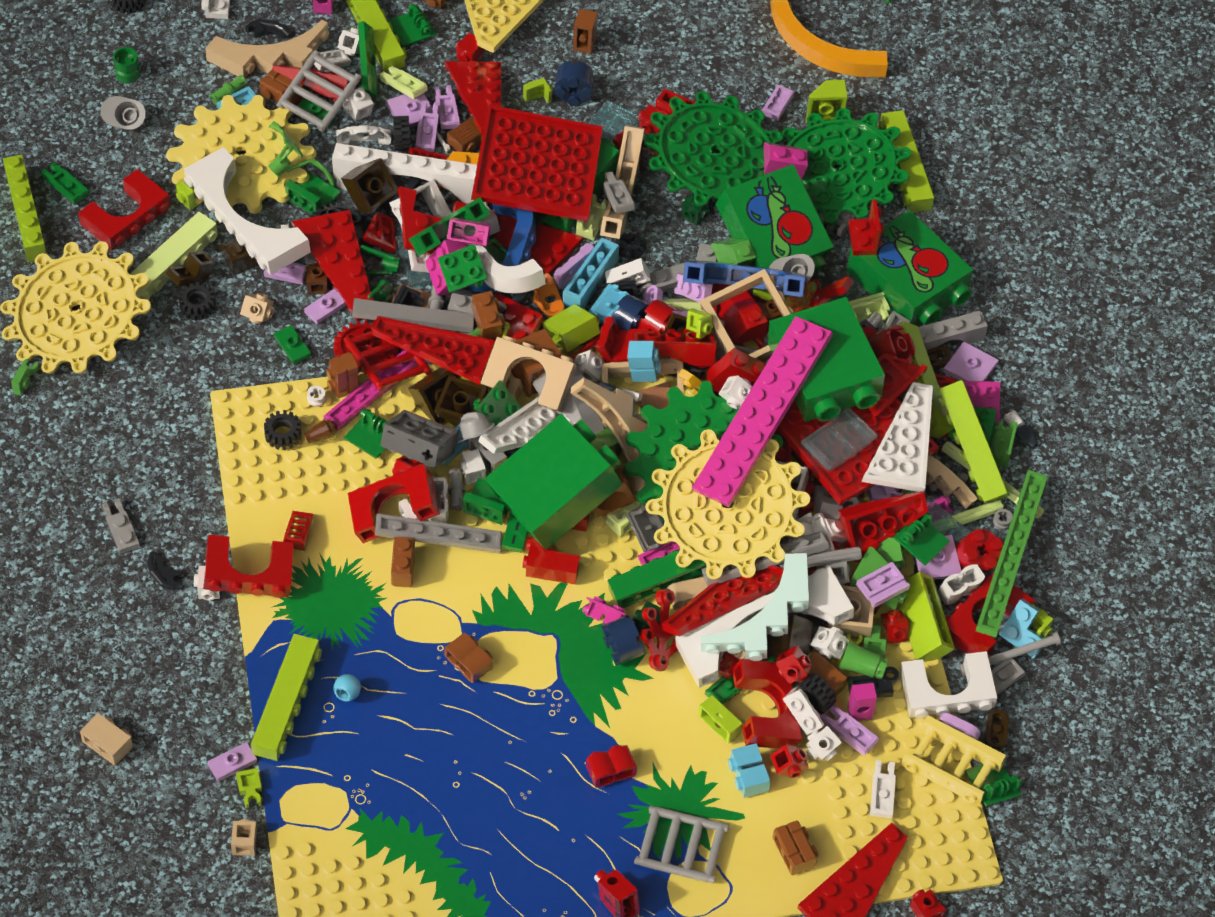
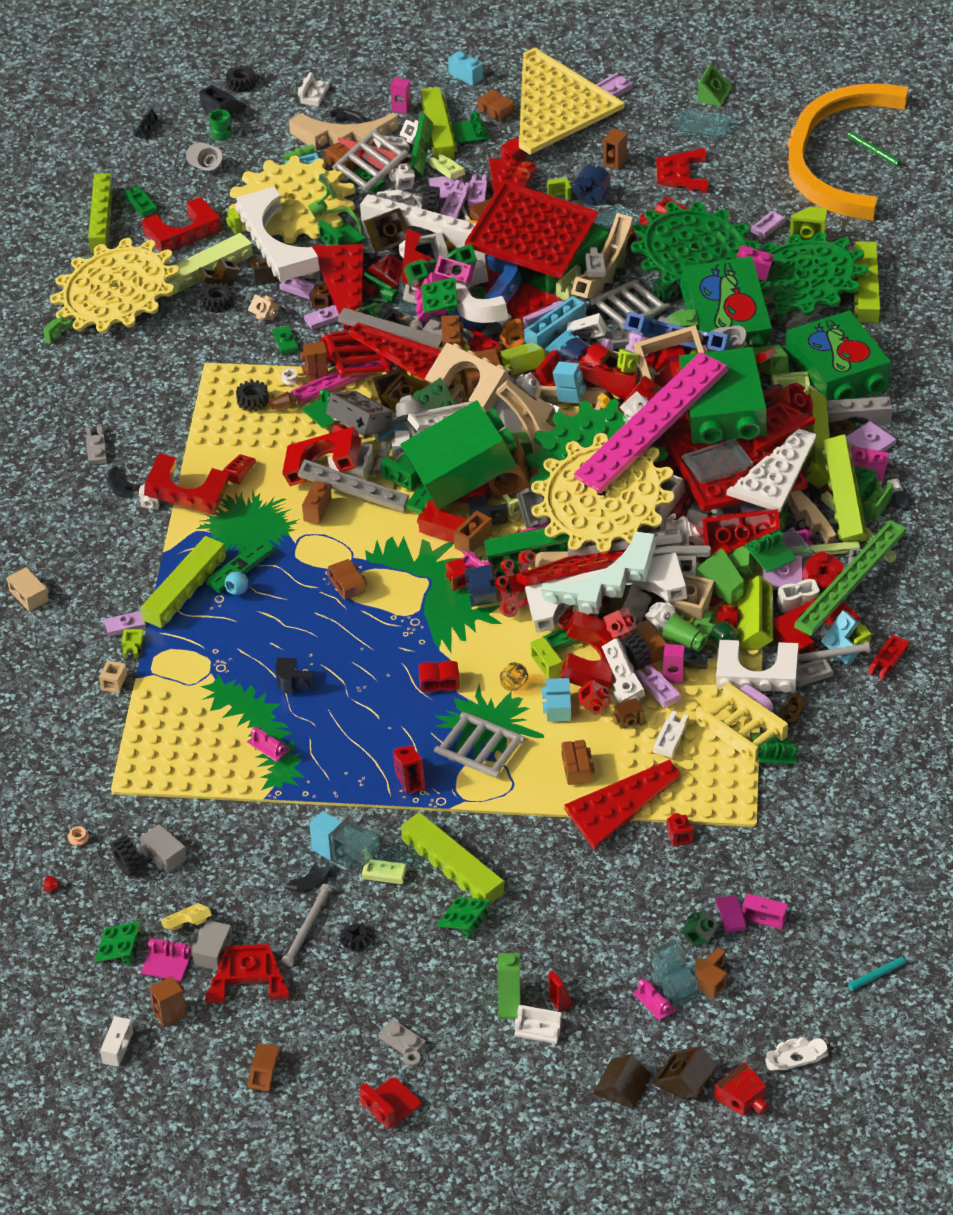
camera: 20 degrees right, 10 degrees down
(38, 76) = (147, 125): none -> black hinge
(115, 32) = (214, 98): none -> black slope
(340, 660) = (242, 563): none -> green tile
(369, 262) = (370, 290): none -> red pin
(445, 803) = (290, 678): none -> black brick
(449, 894) = (267, 744): none -> dark pink hinge
(588, 626) = (456, 574): none -> red brick
(590, 571) = (473, 532): none -> dark orange brick
(591, 543) = (498, 512): none -> black brick
(654, 47) = (674, 170): none -> red wing
(676, 250) = (623, 289): none -> light grey bar
(692, 750) = (513, 676): none -> clear yellow head
(831, 773) = (628, 714): none -> reddish brown brick
(836, 272) = (776, 364): none -> bright green slope
(866, 232) = (800, 319): red bracket -> none
(882, 584) = (720, 575): lavender plate -> none
(900, 650) = (723, 631): none -> dark green head
(1075, 639) = (889, 656): none -> red hinge

